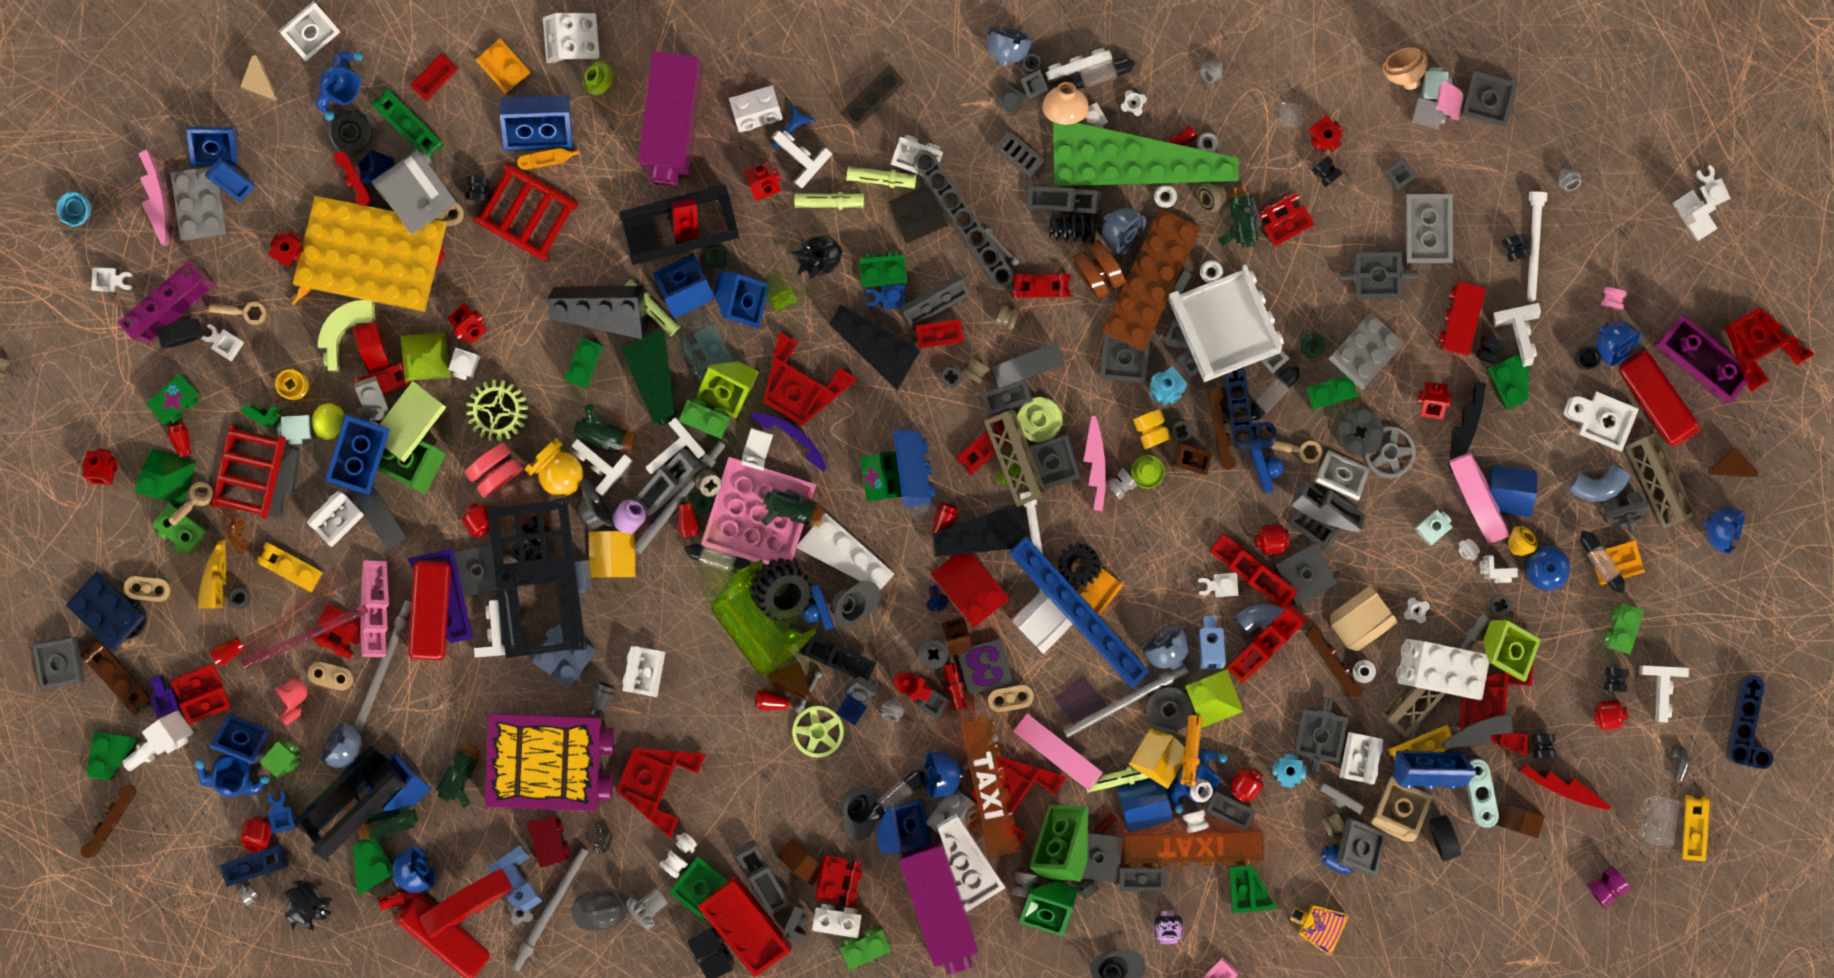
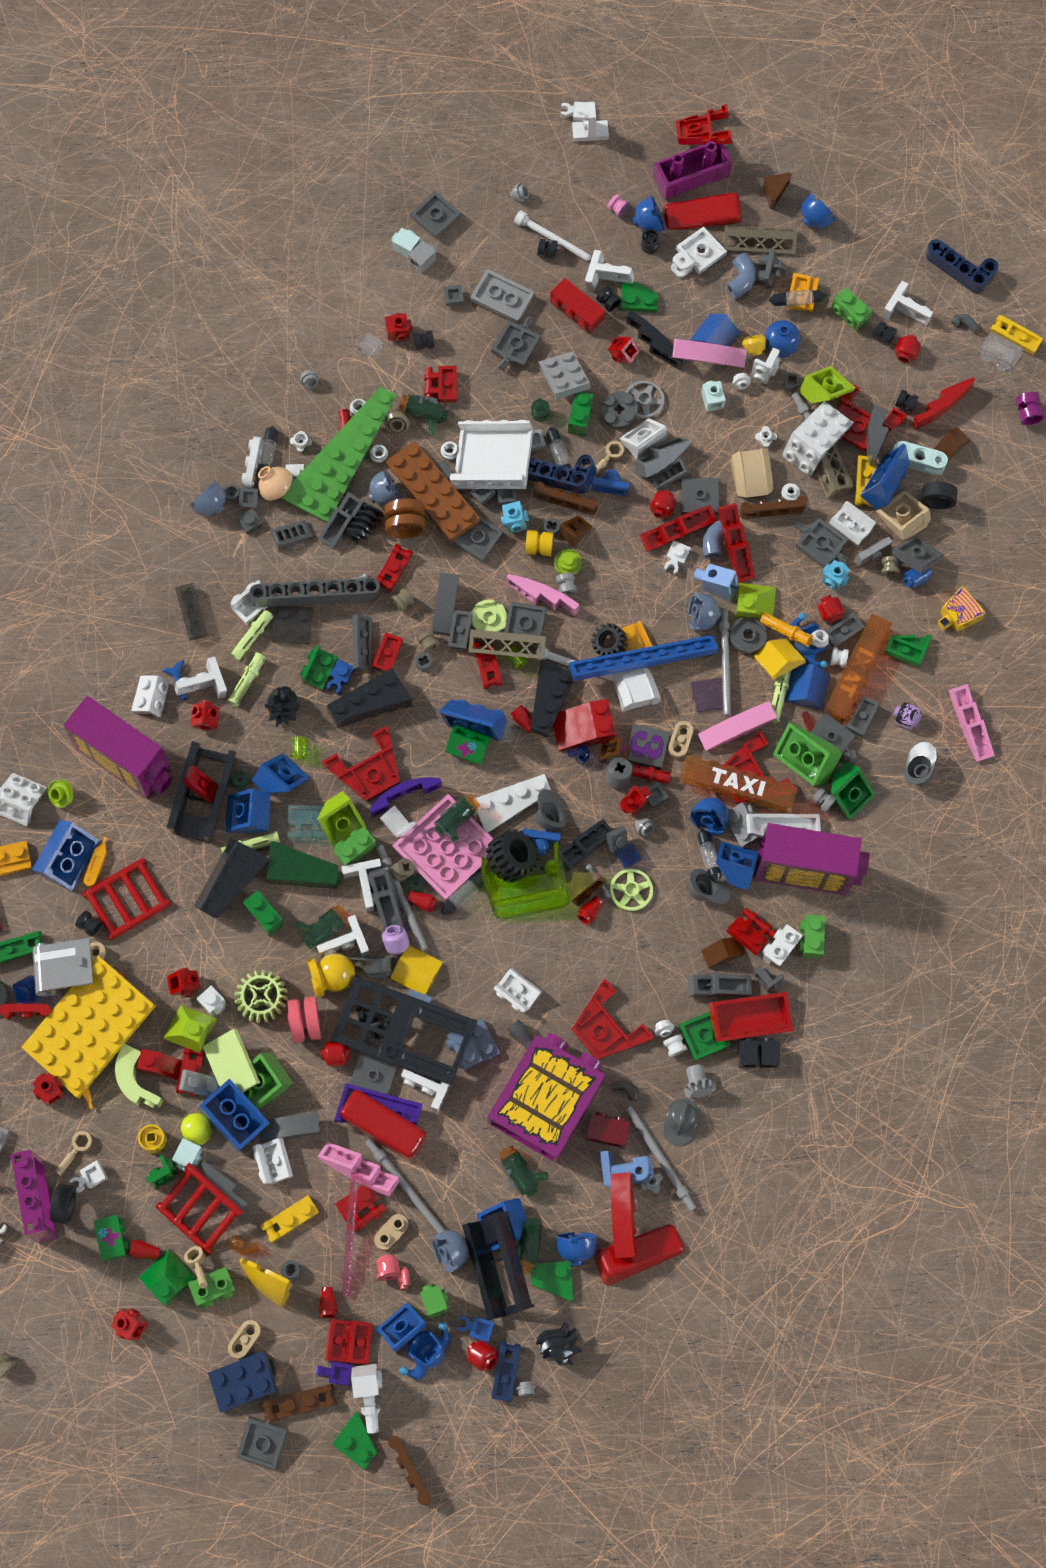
camera: 65 degrees left, 15 degrees down
(395, 899) = (592, 1269): red pin -> none
(1406, 67) = (382, 253): light nougat piece -> none
(1449, 100) = (421, 230): bright pink slope -> none

